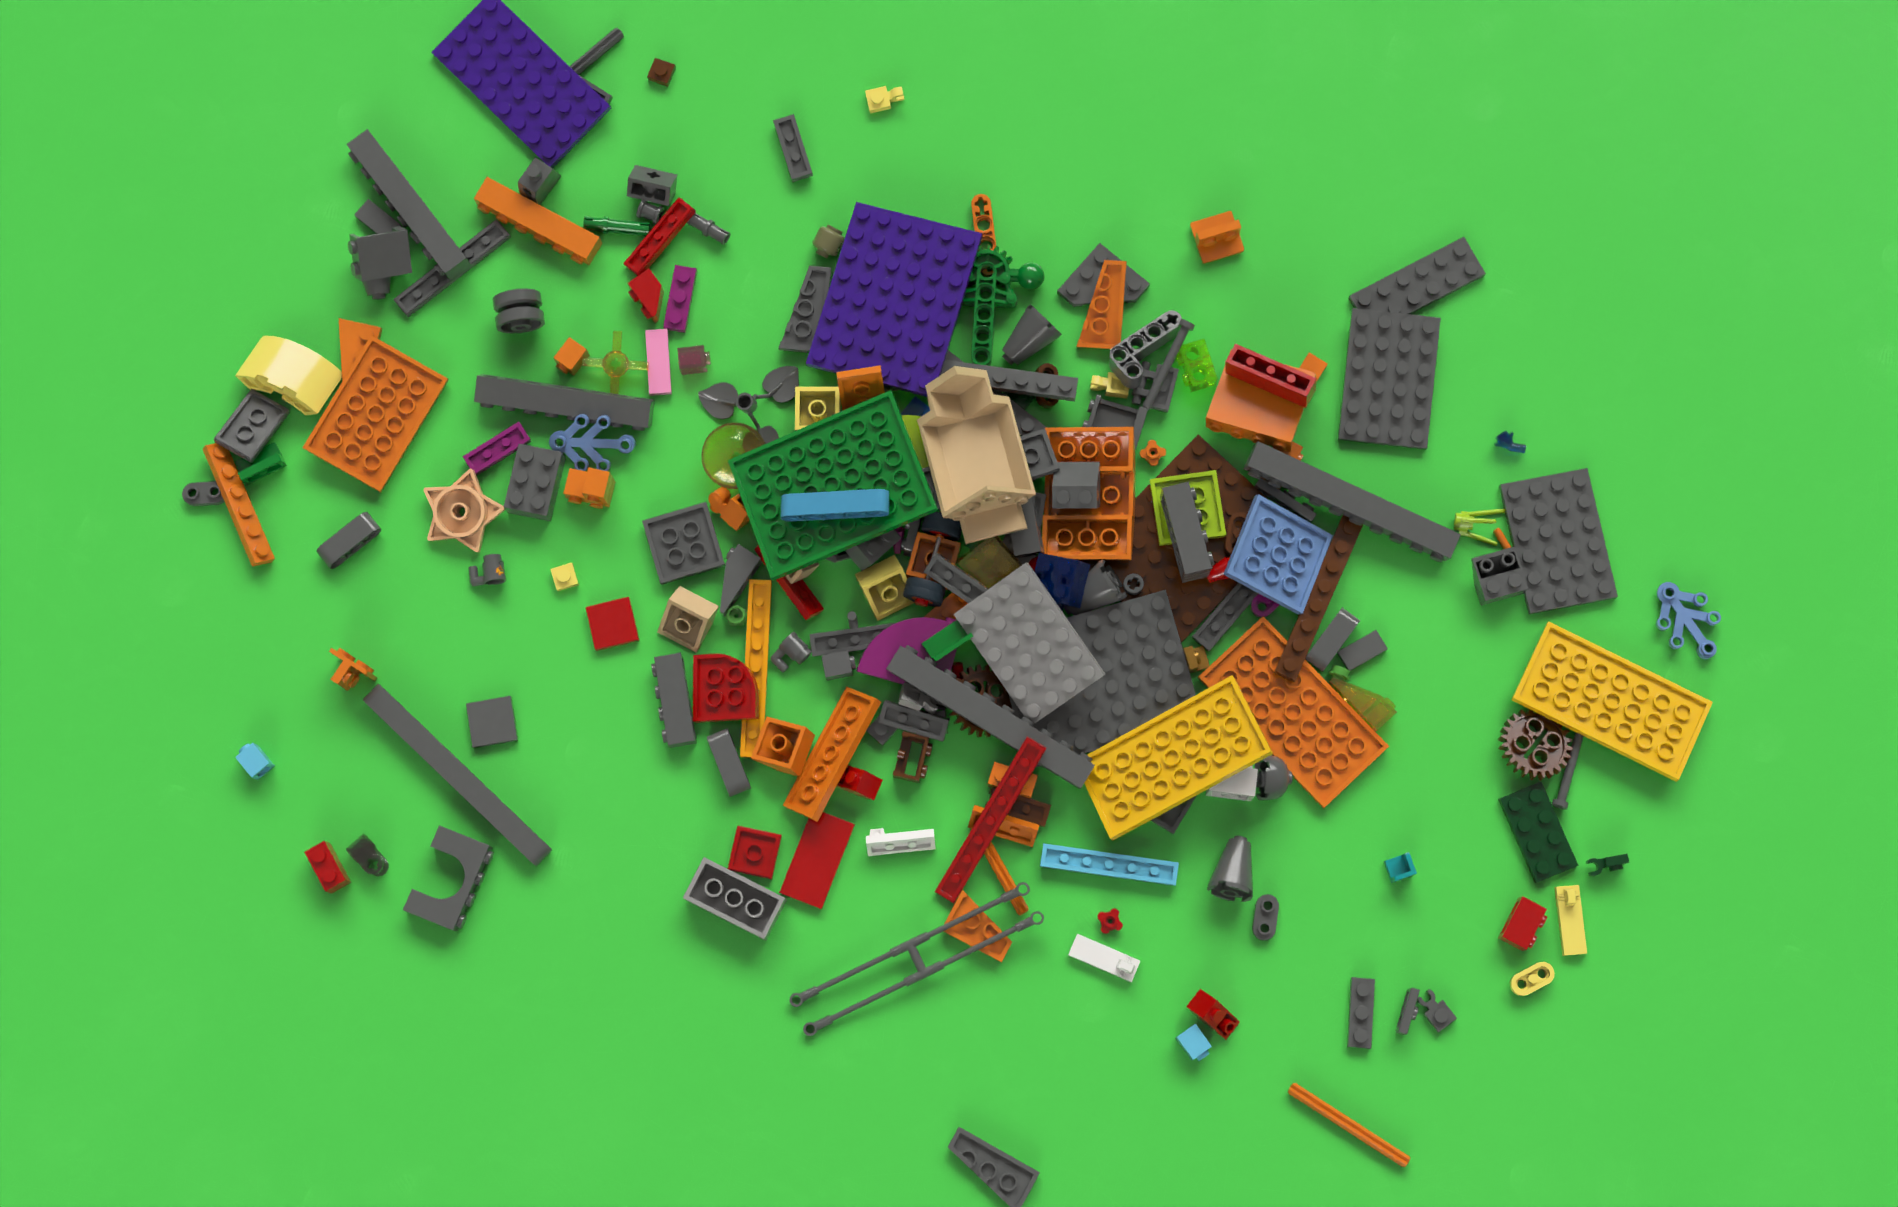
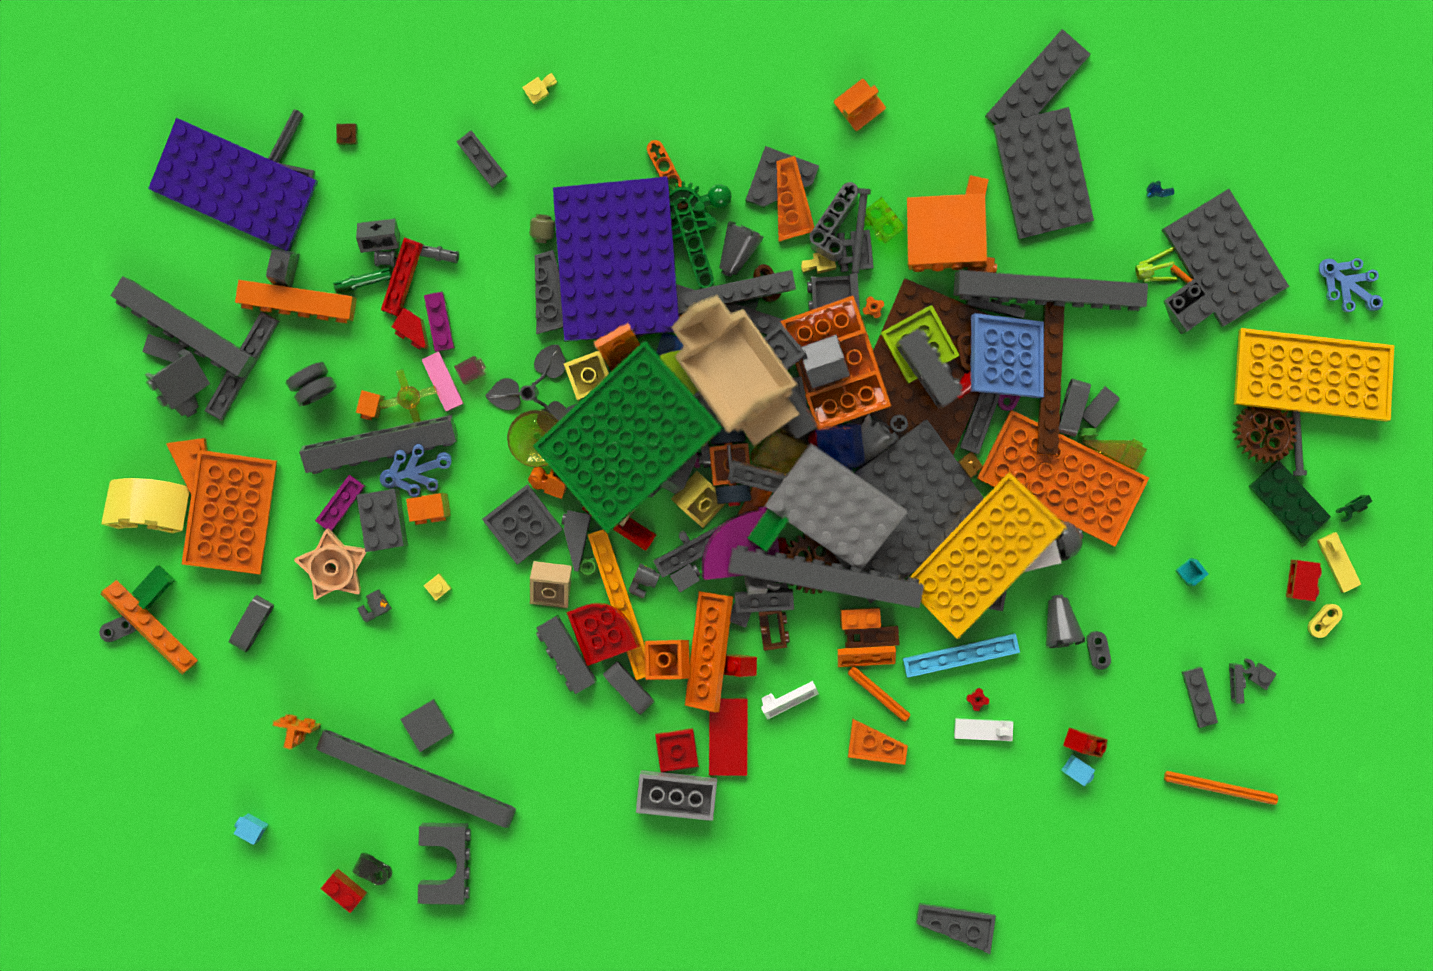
camera: 25 degrees left, 10 degrees up
(251, 425) = (132, 559): dark grey tile -> none
(612, 623) = (491, 610): red tile -> none
(835, 505) = (636, 455): dark azure beam -> none
(922, 970) = (846, 795): dark grey bar -> none
(990, 819) = (856, 657): red tile -> none
(1270, 375) = (950, 210): red brick -> none

